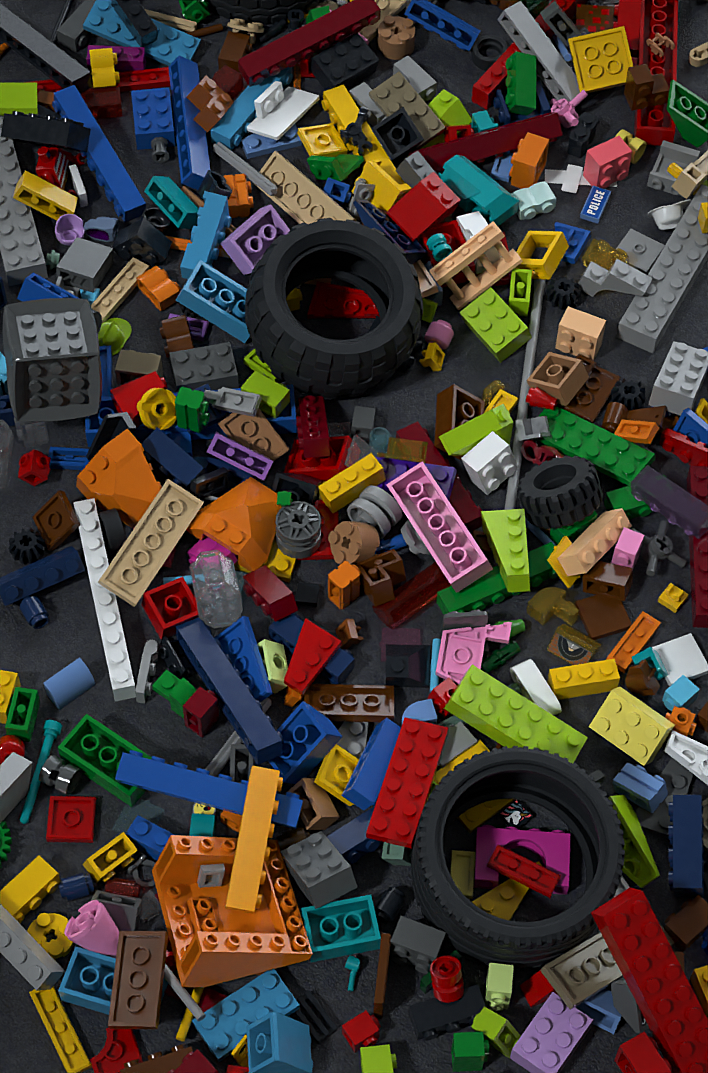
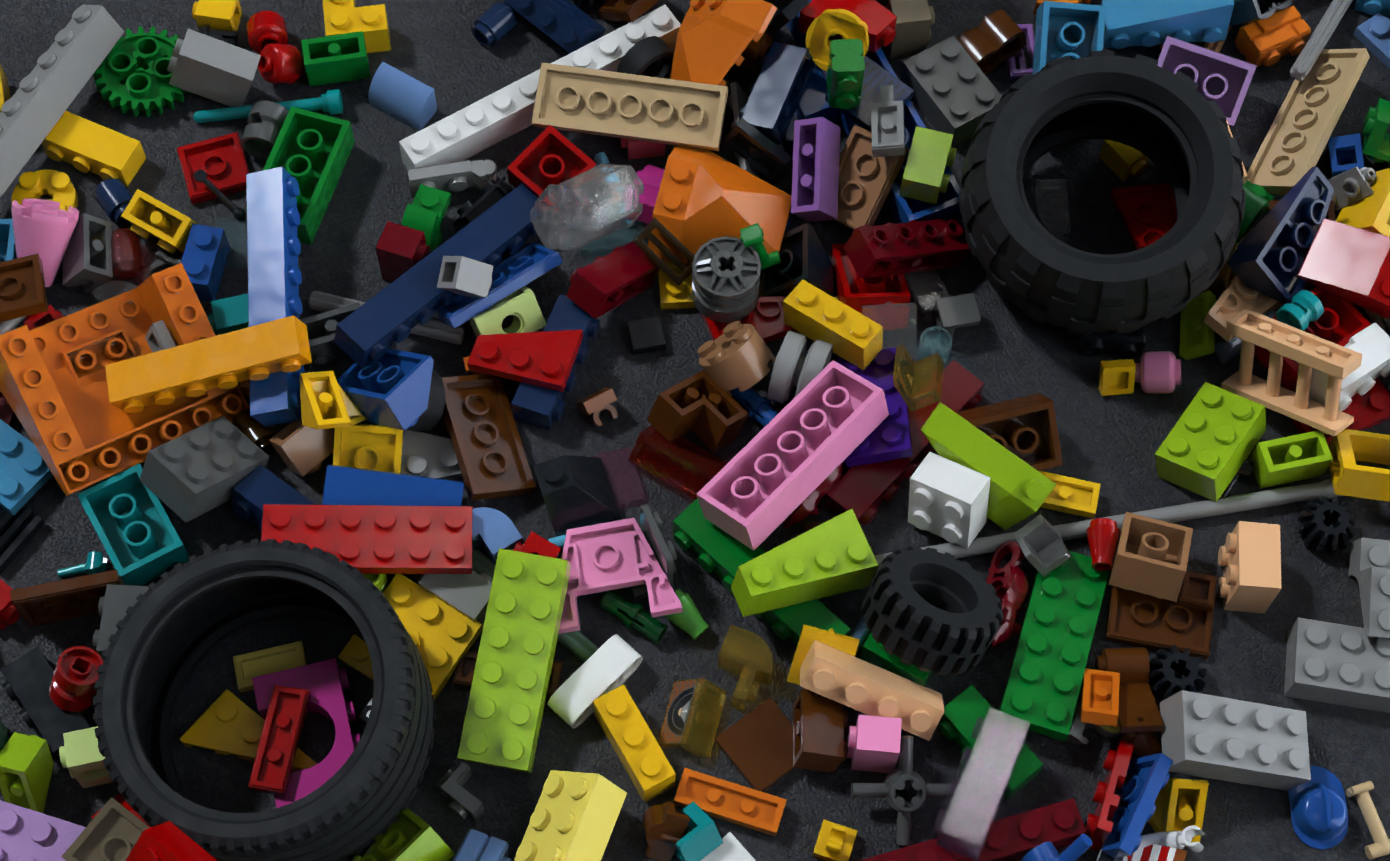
camera: 70 degrees right, 5 degrees up
(81, 824) = (201, 177): none -> black hinge
(245, 670) = (465, 276): none -> light grey brick
(252, 560) = (646, 232): none -> dark brown tile
(308, 778) = (325, 402): none -> yellow slope
(344, 584) = (664, 364): orange brick -> none
(489, 390) = (1096, 473): clear yellow arm -> none

